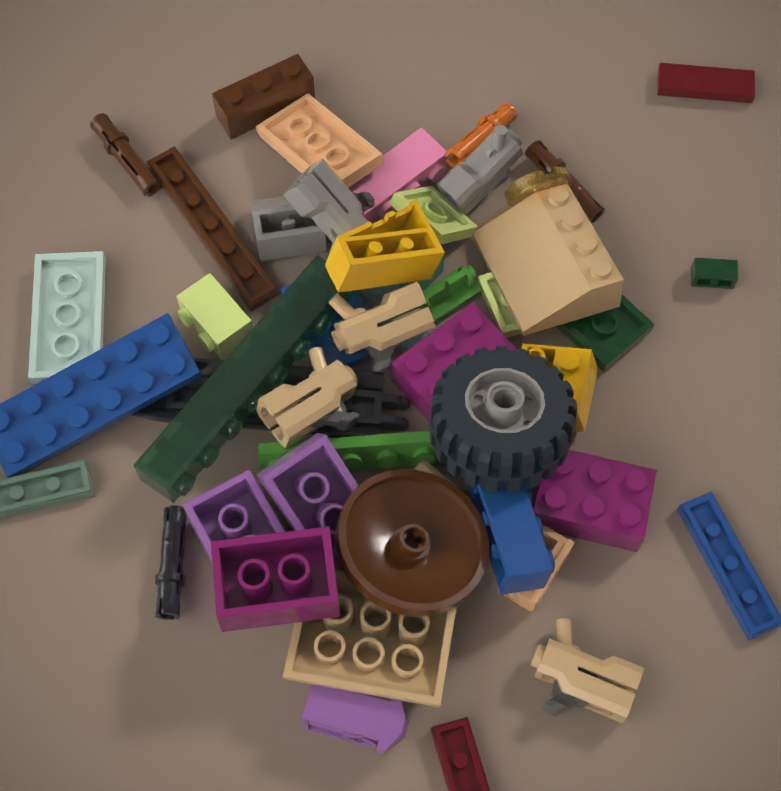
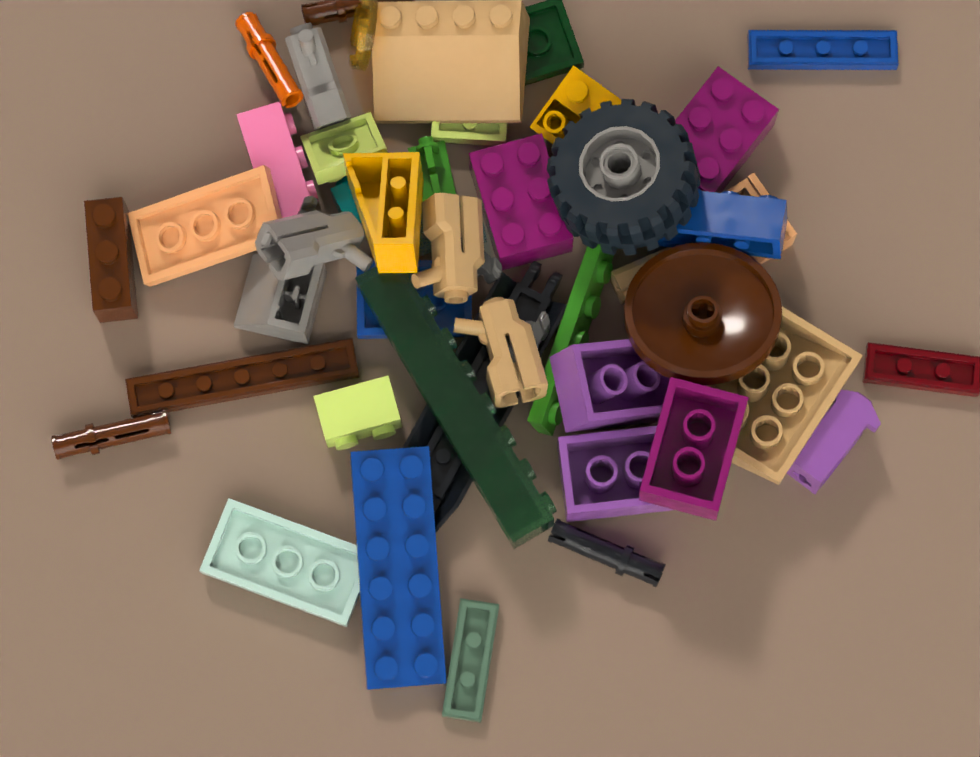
camera: 65 degrees left, 10 degrees up
(584, 679) = (878, 225): tan piece -> none

